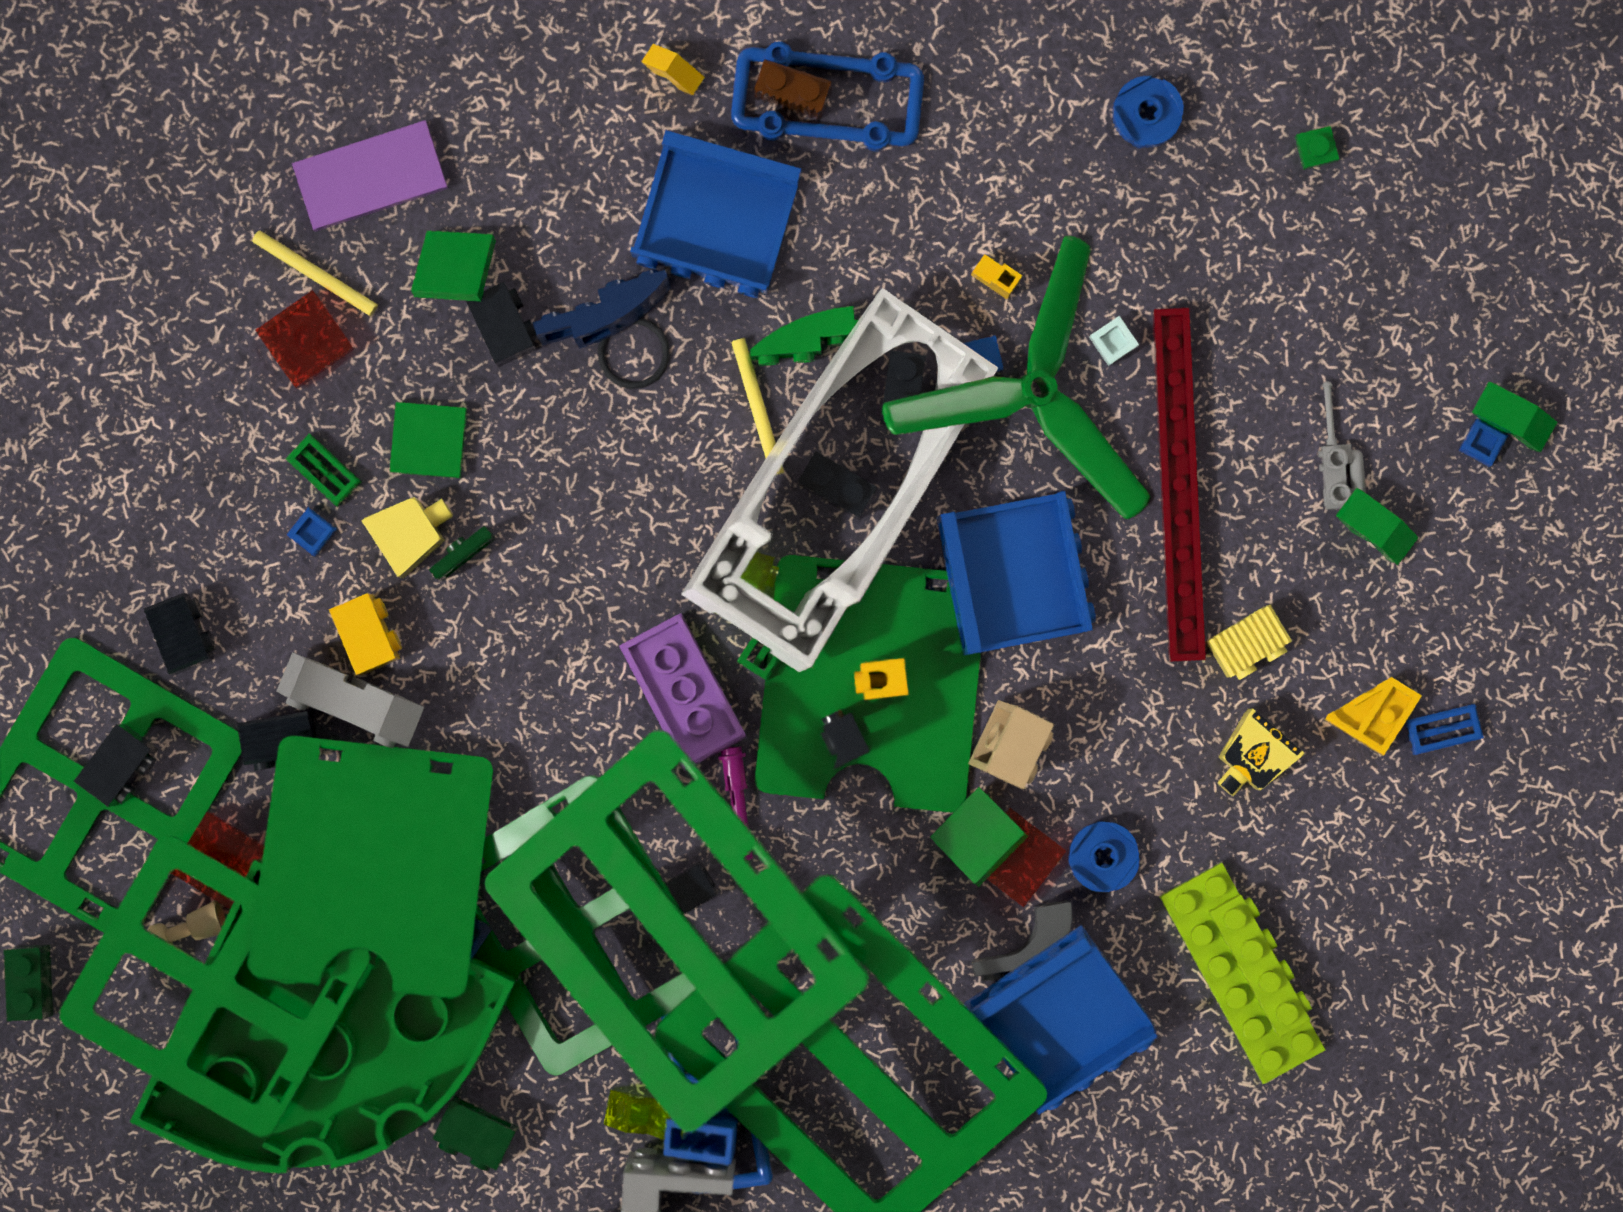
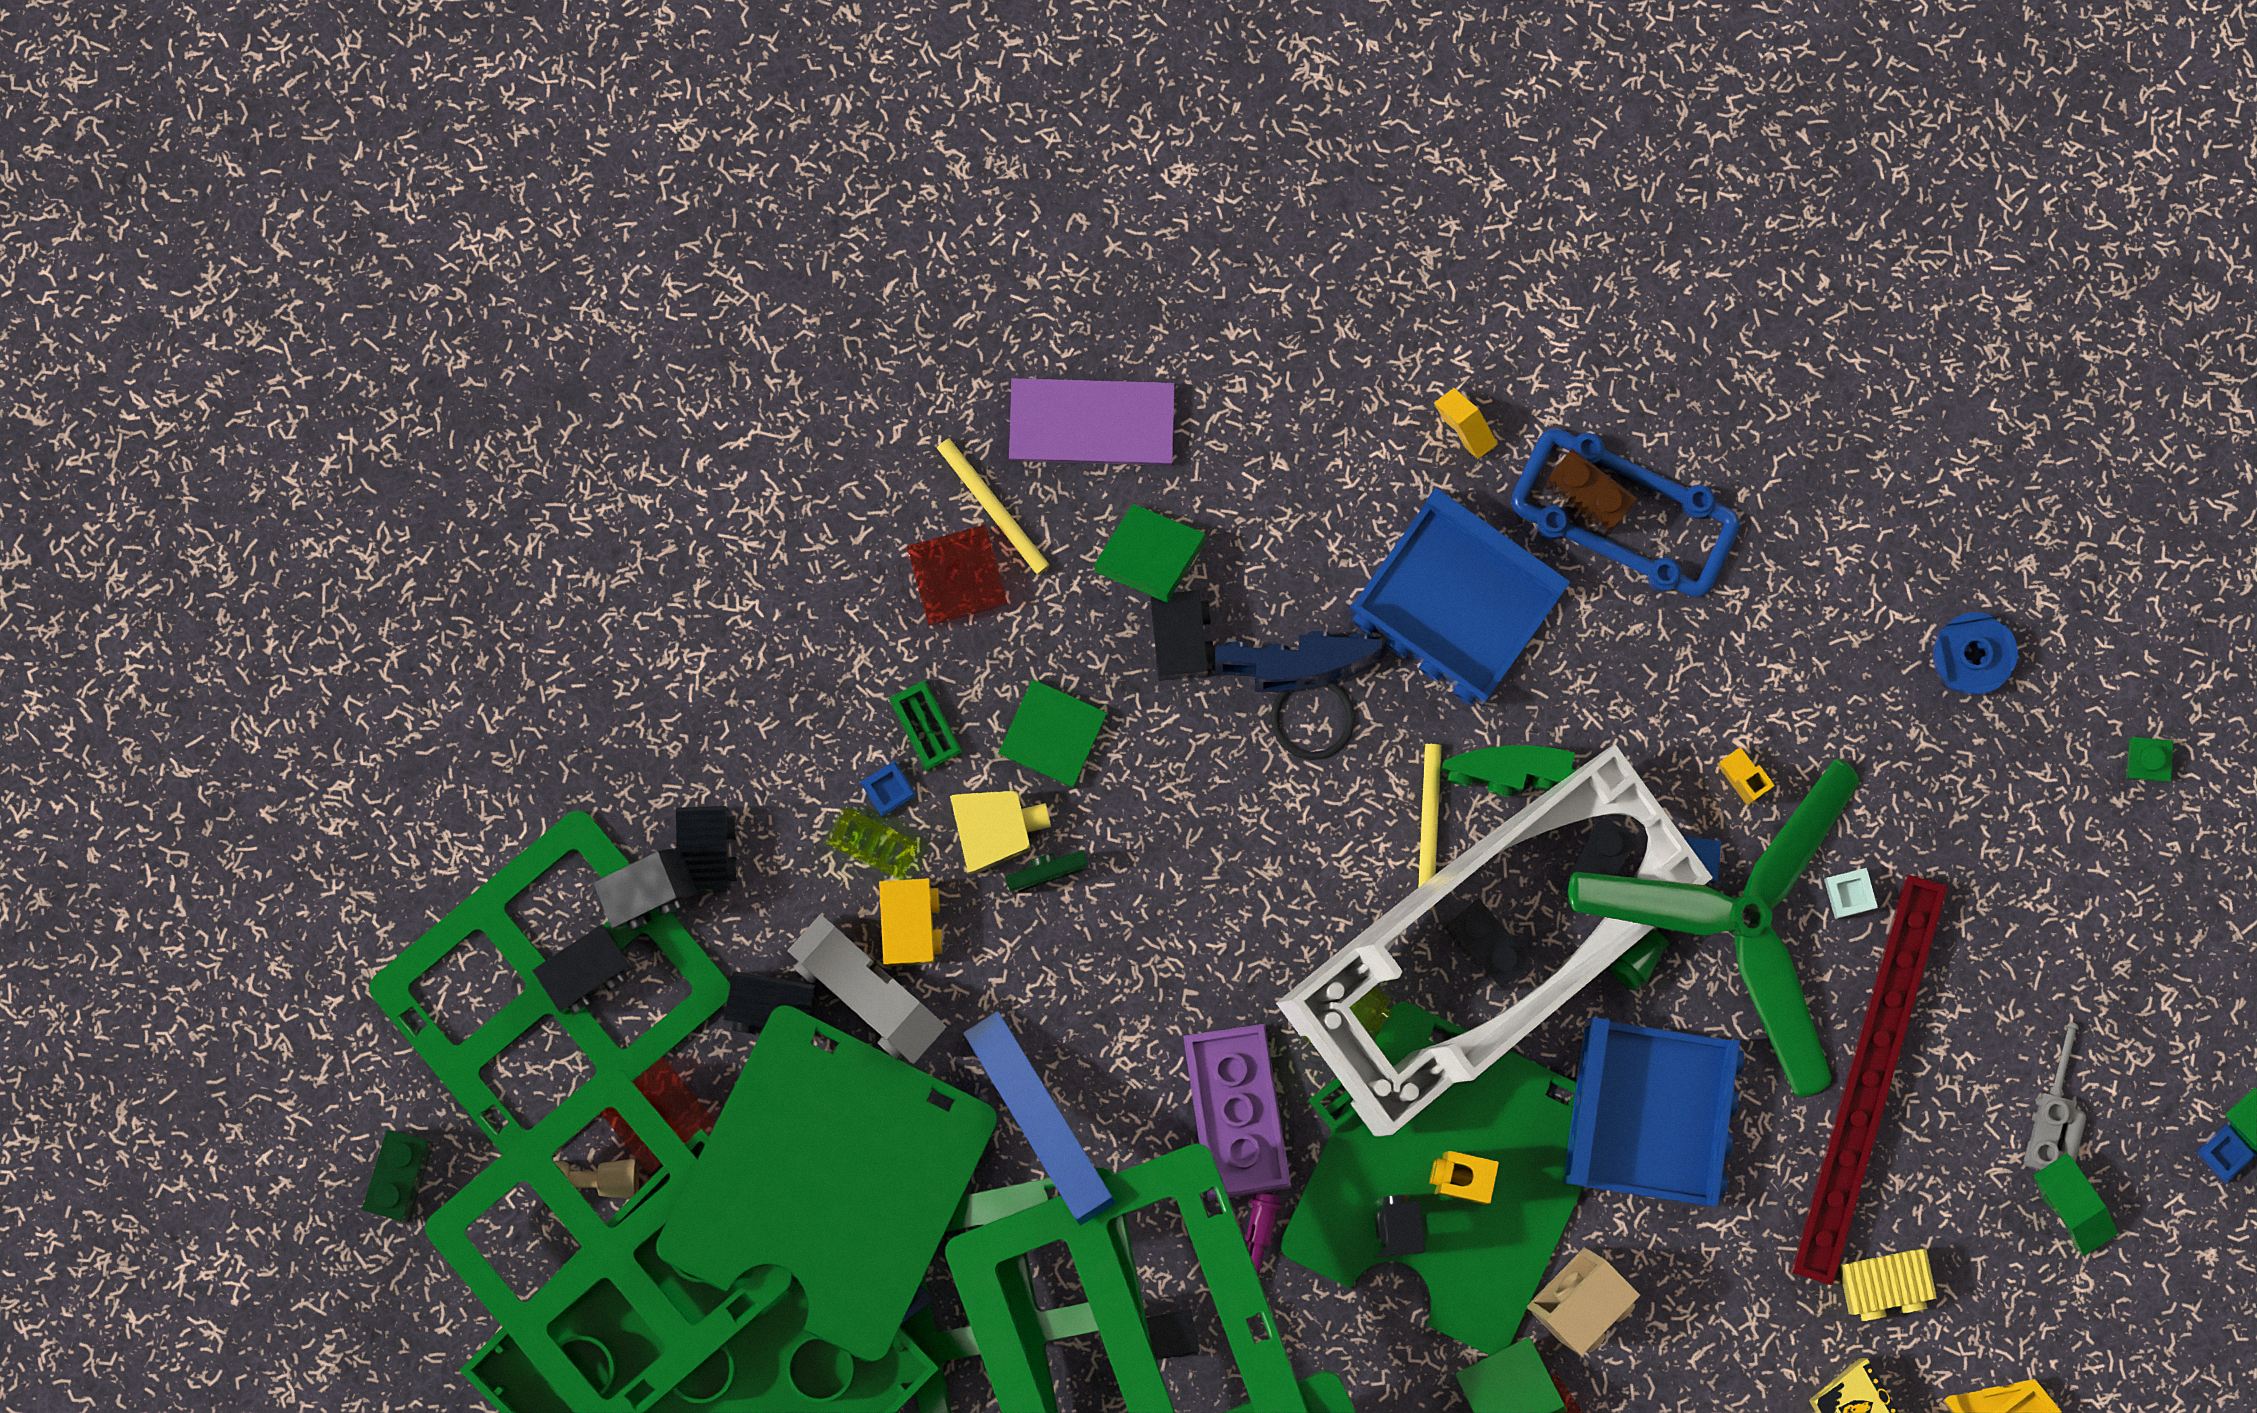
camera: 15 degrees right, 5 degrees down
(141, 682) = (645, 889): none -> black brick
(284, 575) = (839, 827): none -> clear neon green slope
(524, 754) = (1039, 1118): none -> blue tile
(963, 454) = (1639, 961): none -> green cone

